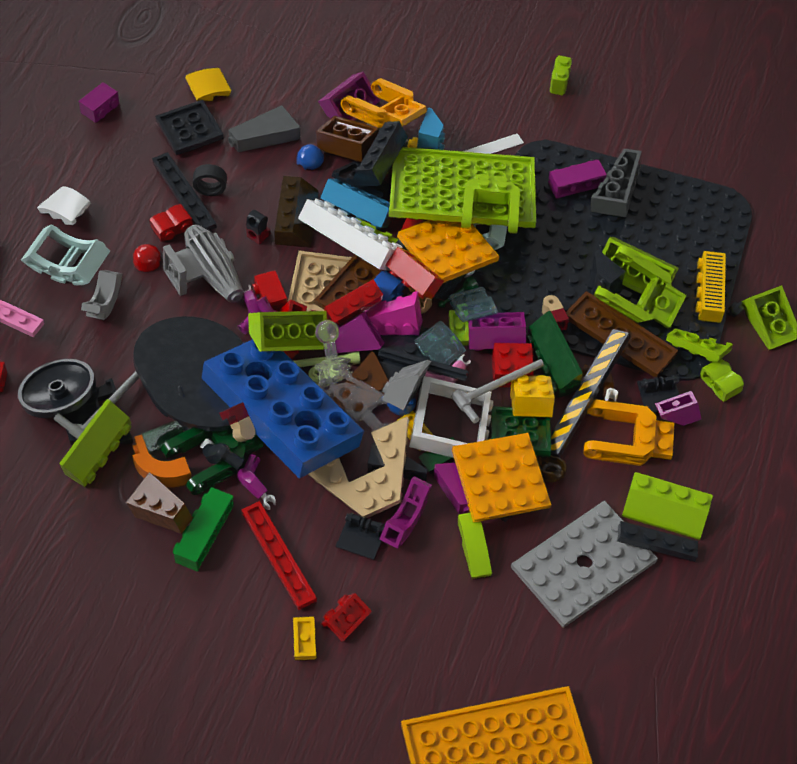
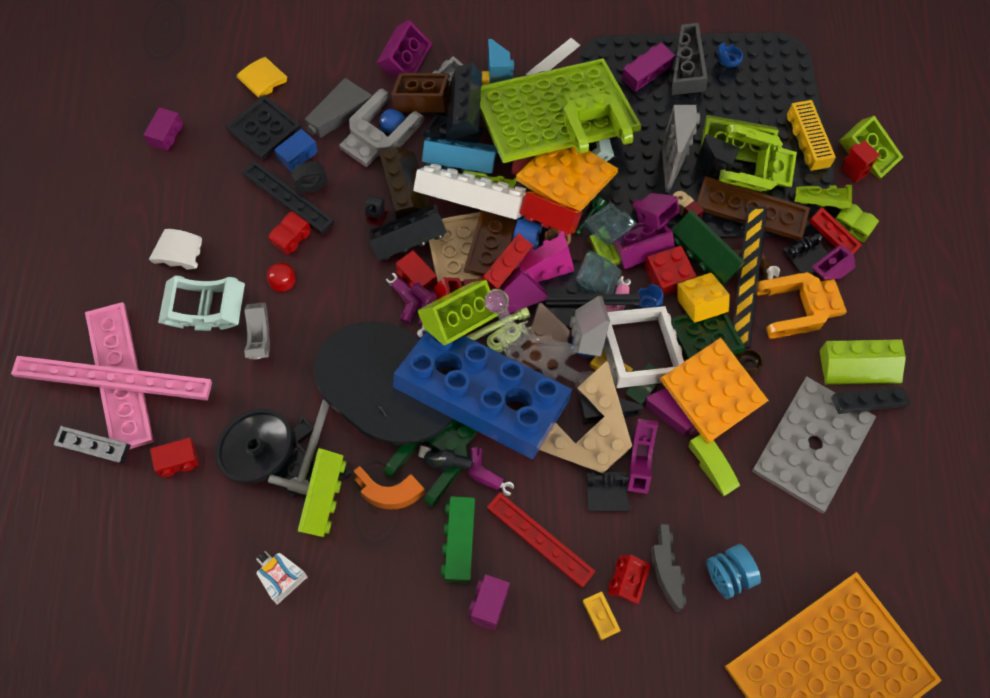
camera: 20 degrees left, 10 degrees up
(29, 503) = (279, 575): none -> torso
(158, 436) = (377, 458): clear green plate -> none
(159, 505) = (409, 534): wedge -> none
(204, 587) = (489, 603): none -> magenta brick
(206, 258) = (340, 261): light grey piece -> none
(210, 152) = (296, 150): none -> blue brick
(240, 422) = (452, 421): leg -> none
(277, 253) = (407, 232): none -> black slope
(279, 163) = (367, 140): none -> light grey plate
(384, 620) = (668, 576): none -> dark grey slope
(400, 105) = (461, 49): light orange plate -> none
(445, 640) = (733, 571): none -> dark azure wheel
(464, 400) = (648, 324): light grey bar -> none
(479, 379) = (650, 297): none -> blue hair
(523, 304) = (656, 209): none -> magenta torso
(567, 250) = (677, 140): none -> light grey slope
(662, 191) = (729, 56): none -> blue hair
(694, 381) = (834, 231): none -> red plate
(735, 308) = (838, 148): black plate -> none
(750, 324) = (859, 161): none -> red brick

